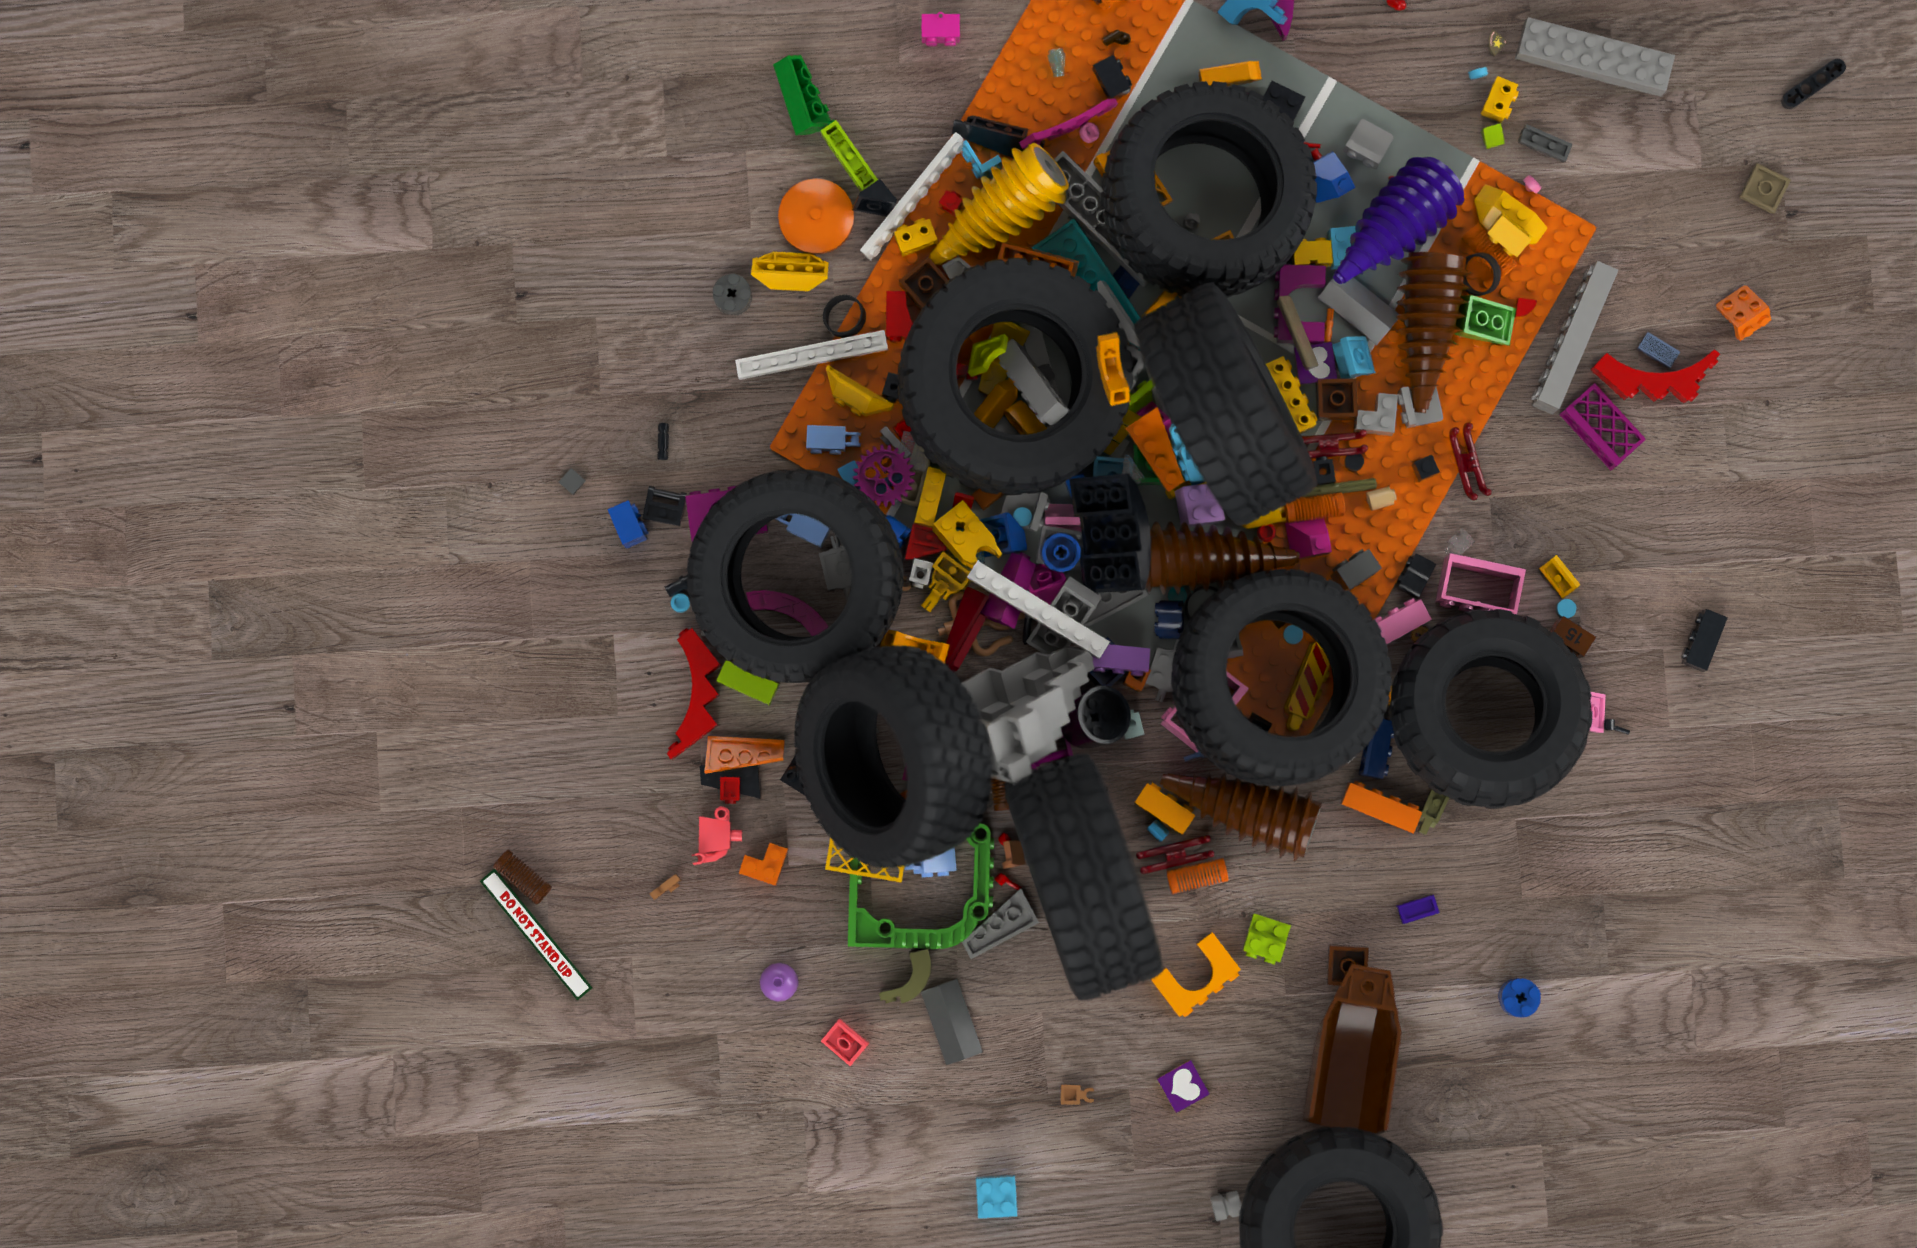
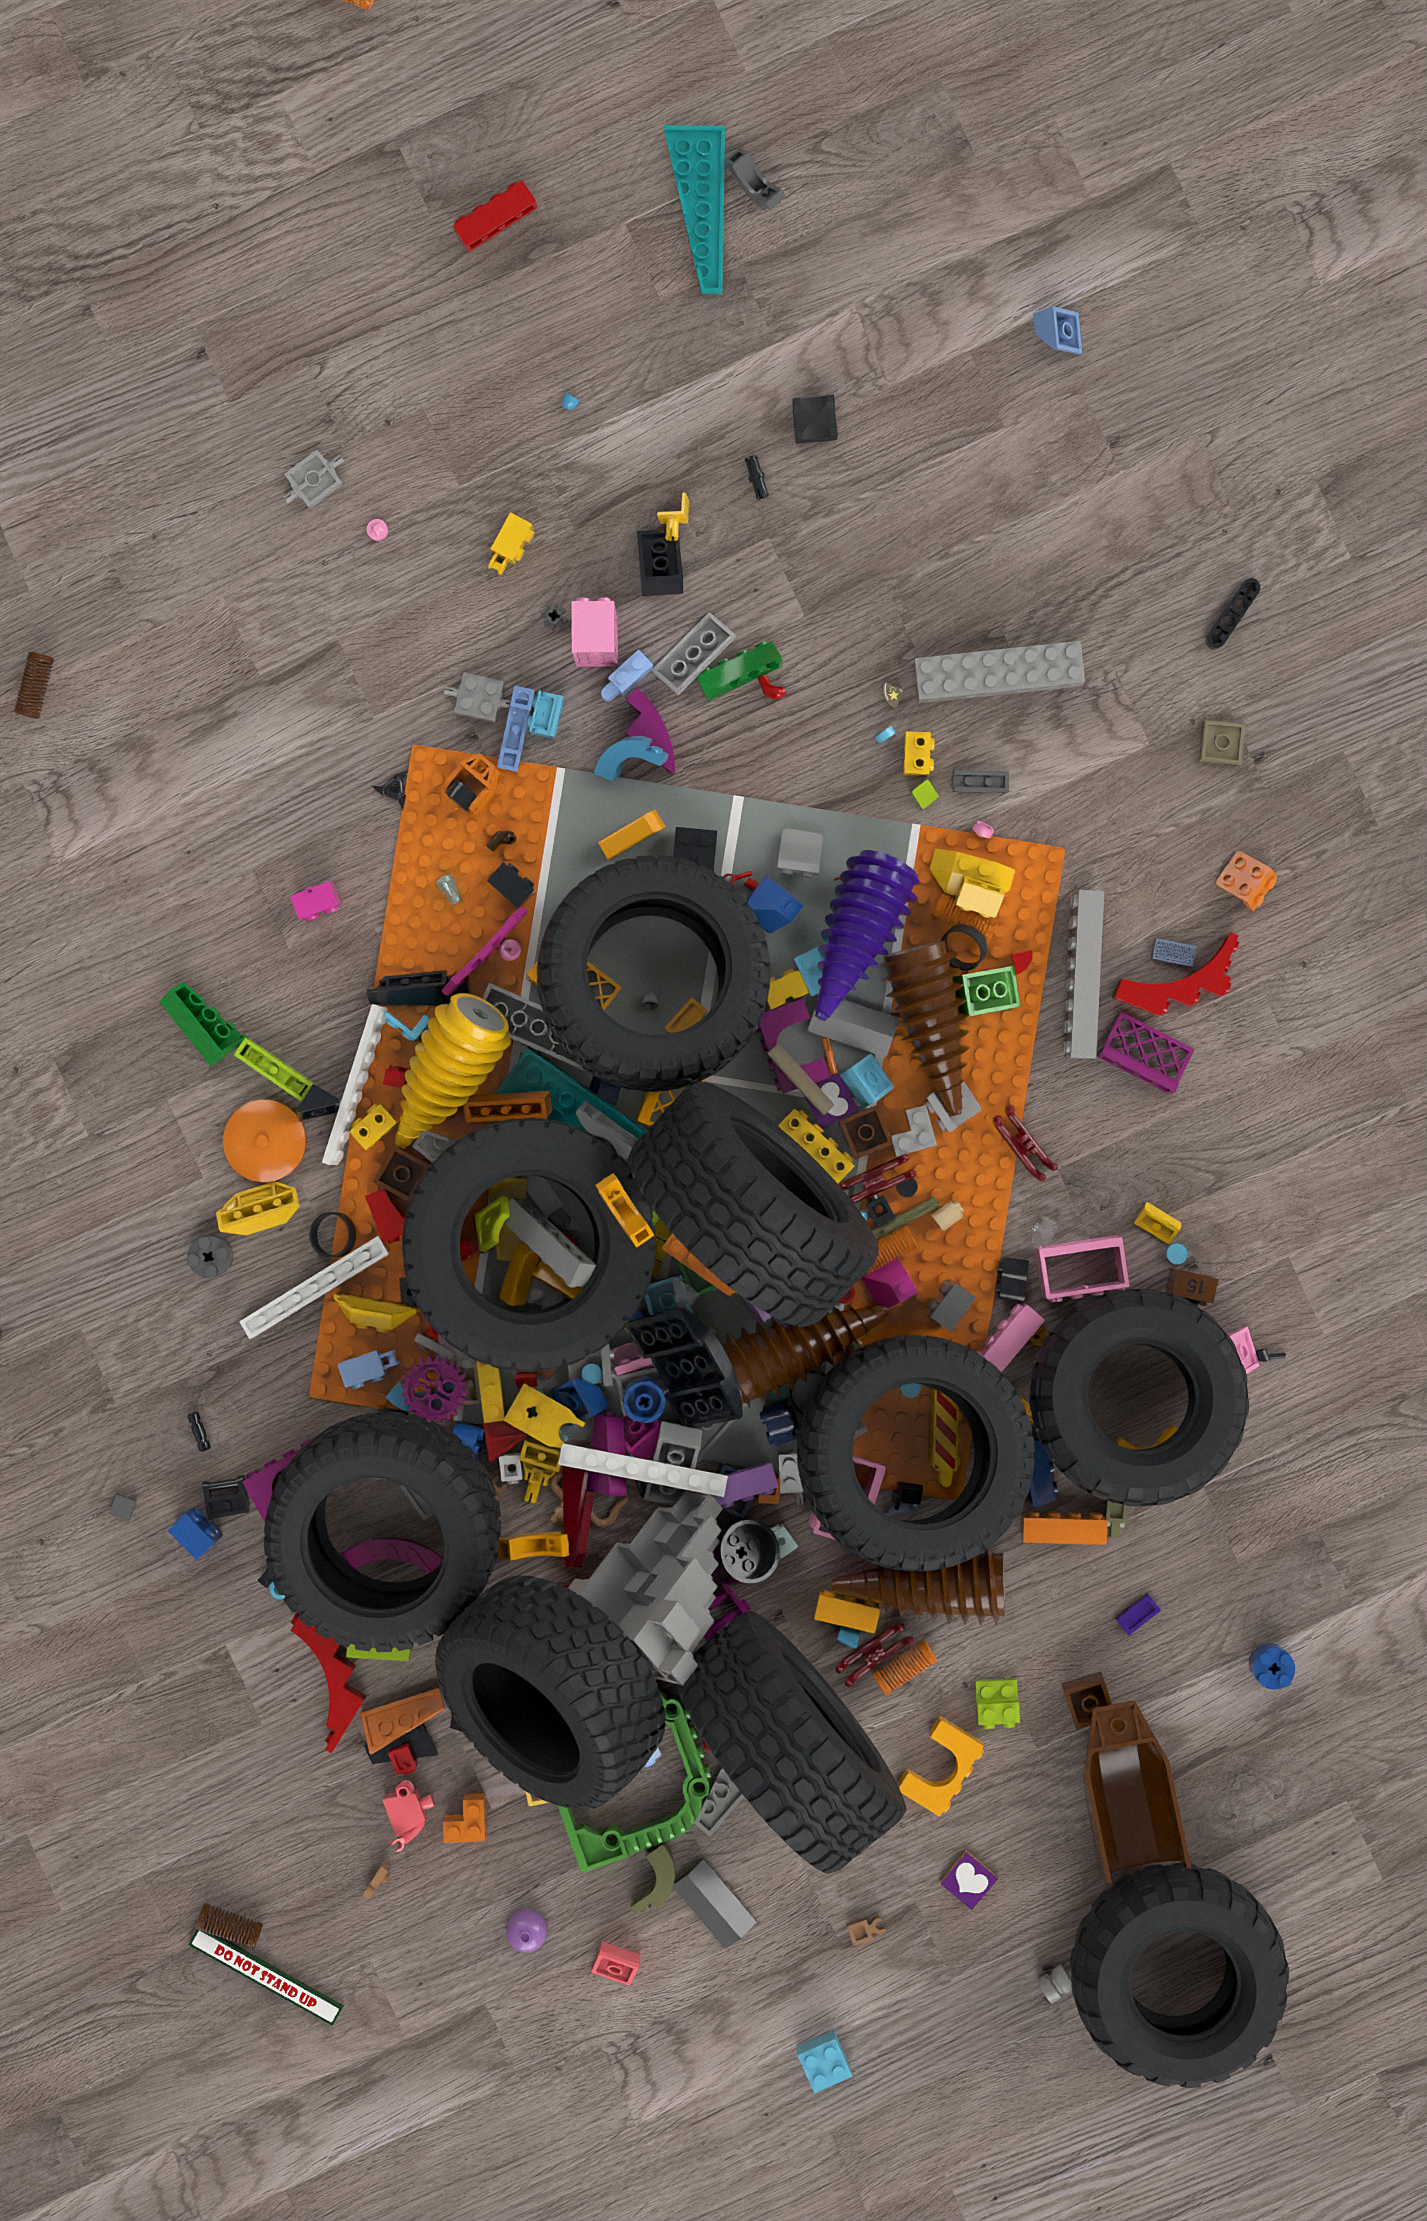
camera: 25 degrees left, 5 degrees up
(1425, 468) = (981, 1167): black brick -> none
(1703, 640) = (1327, 1234): black brick -> none

